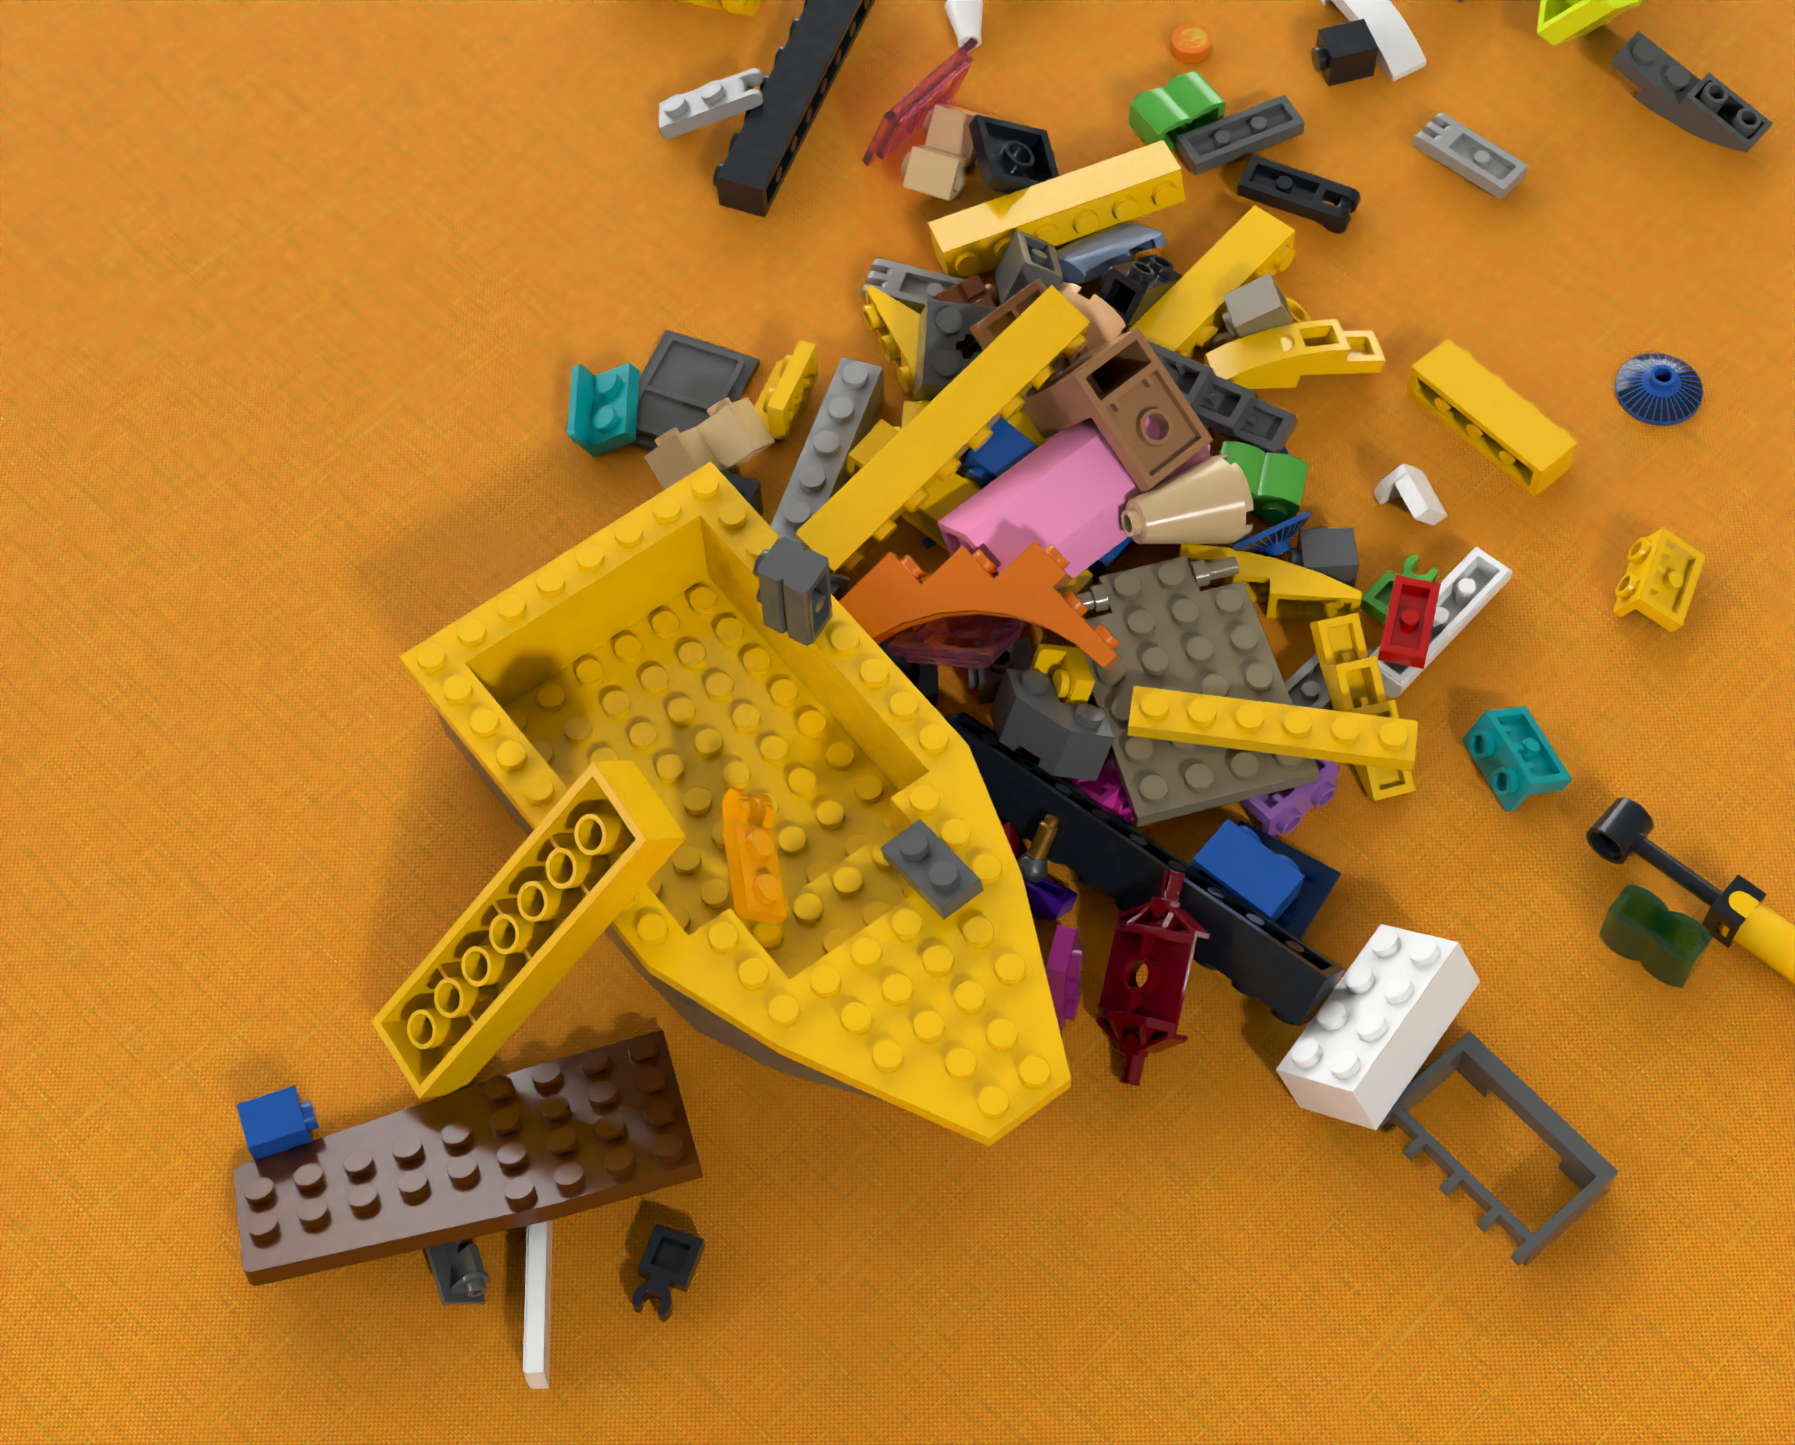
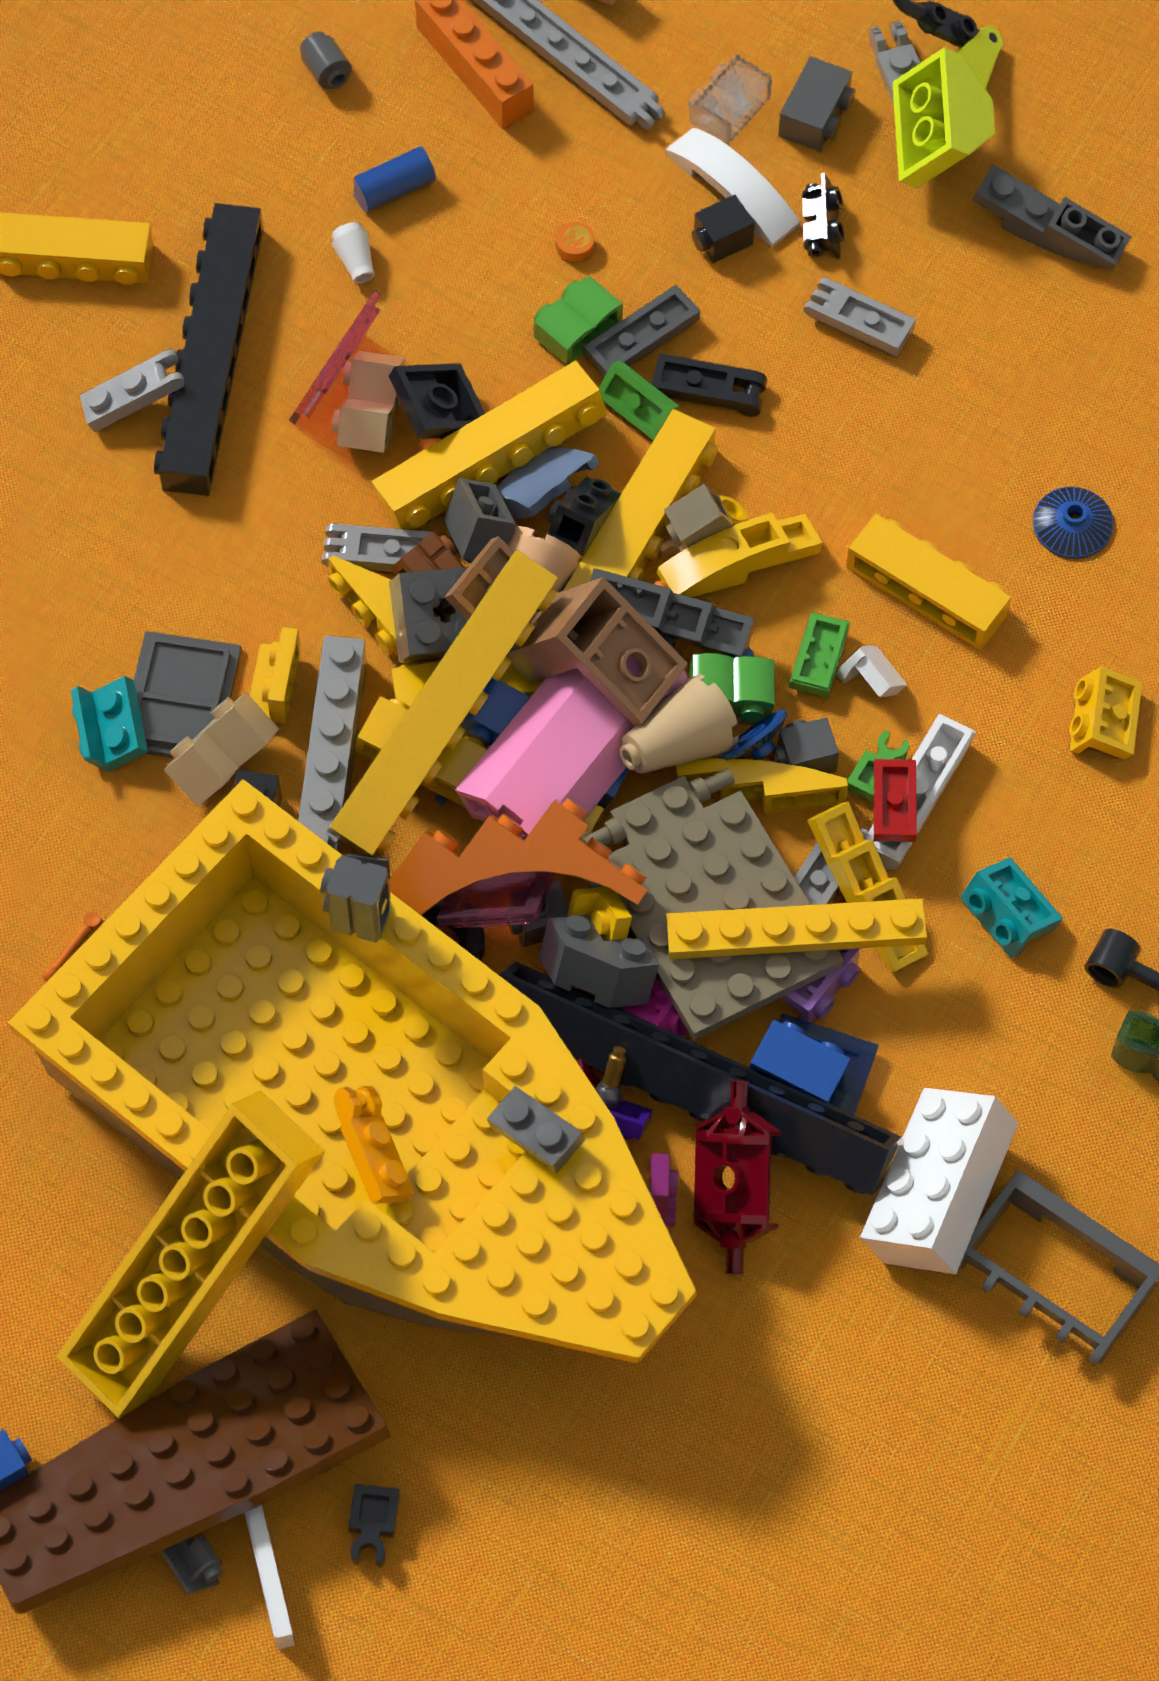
camera: 15 degrees left, 5 degrees up
(1218, 192) = (636, 399): none -> bright green plate
(1359, 469) = (819, 655): none -> bright green plate
(1450, 59) = (824, 204): none -> hinge

